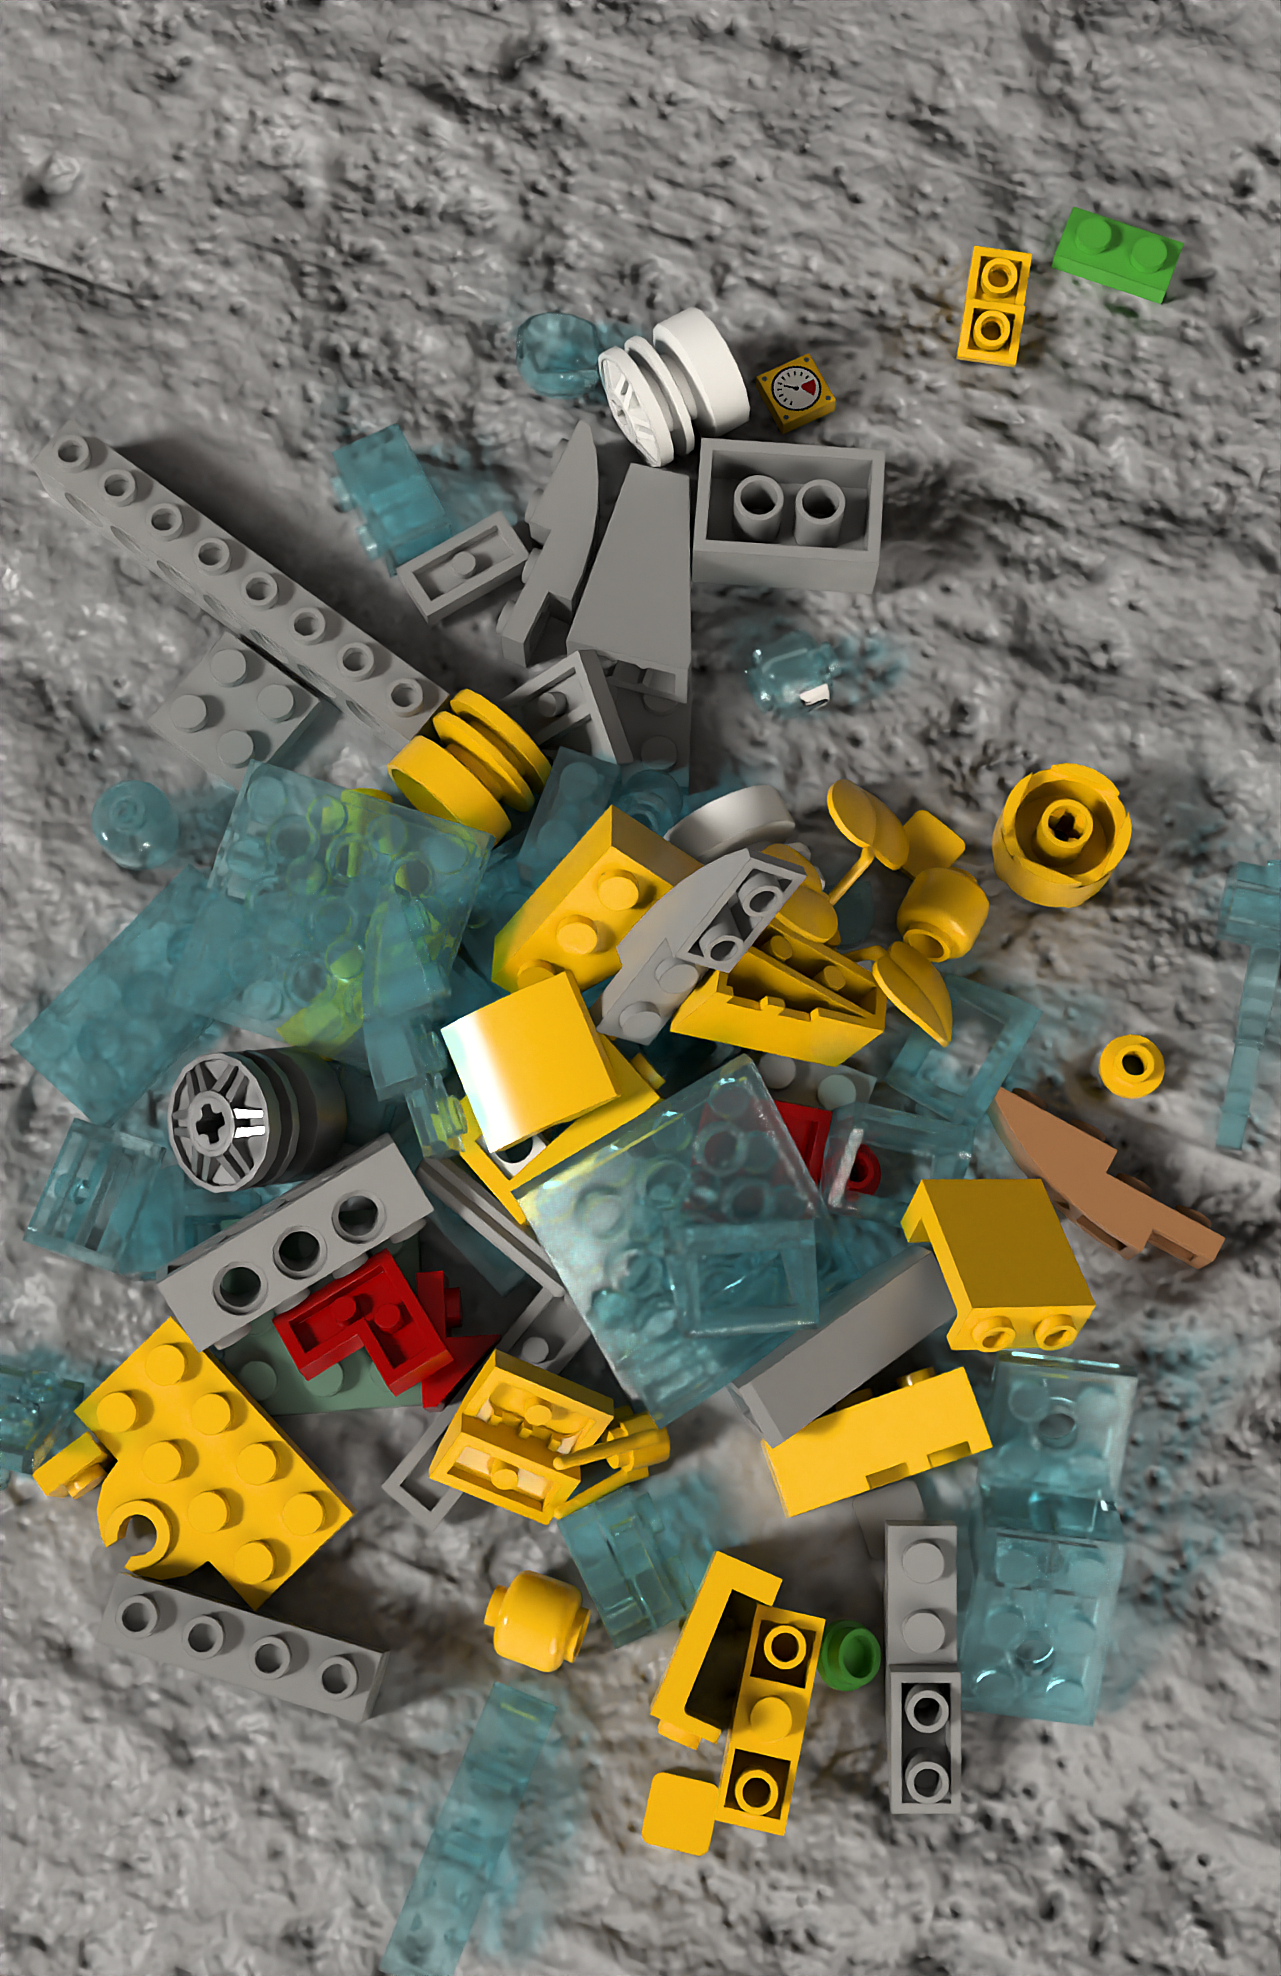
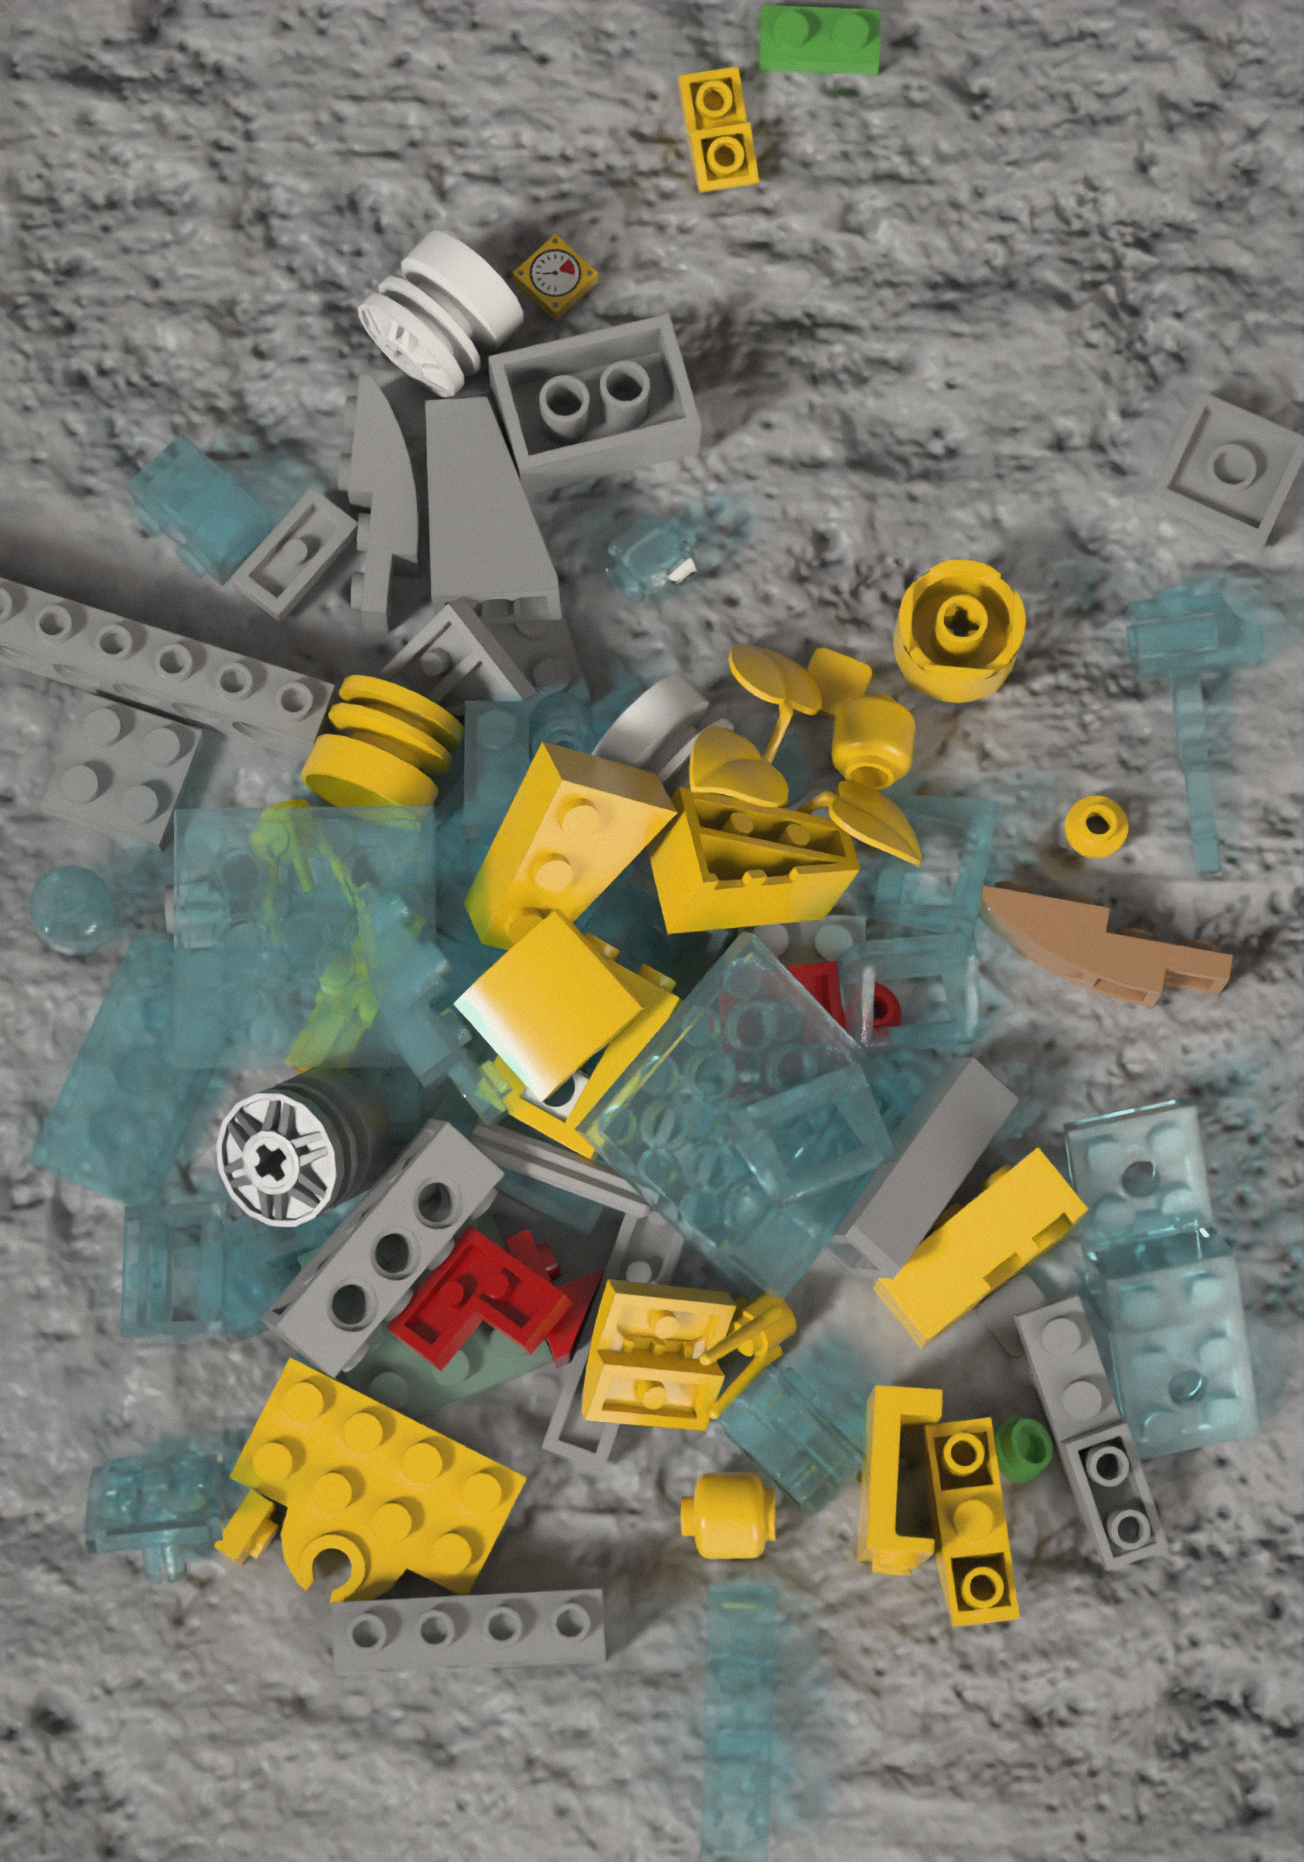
camera: 25 degrees left, 0 degrees up
(558, 355) = (313, 313): clear light blue hair -> none
(680, 1813) = (918, 1642): yellow piece -> none
(692, 928) = (663, 829): light grey slope -> none
(1001, 1262) = (1039, 1043): yellow panel -> none

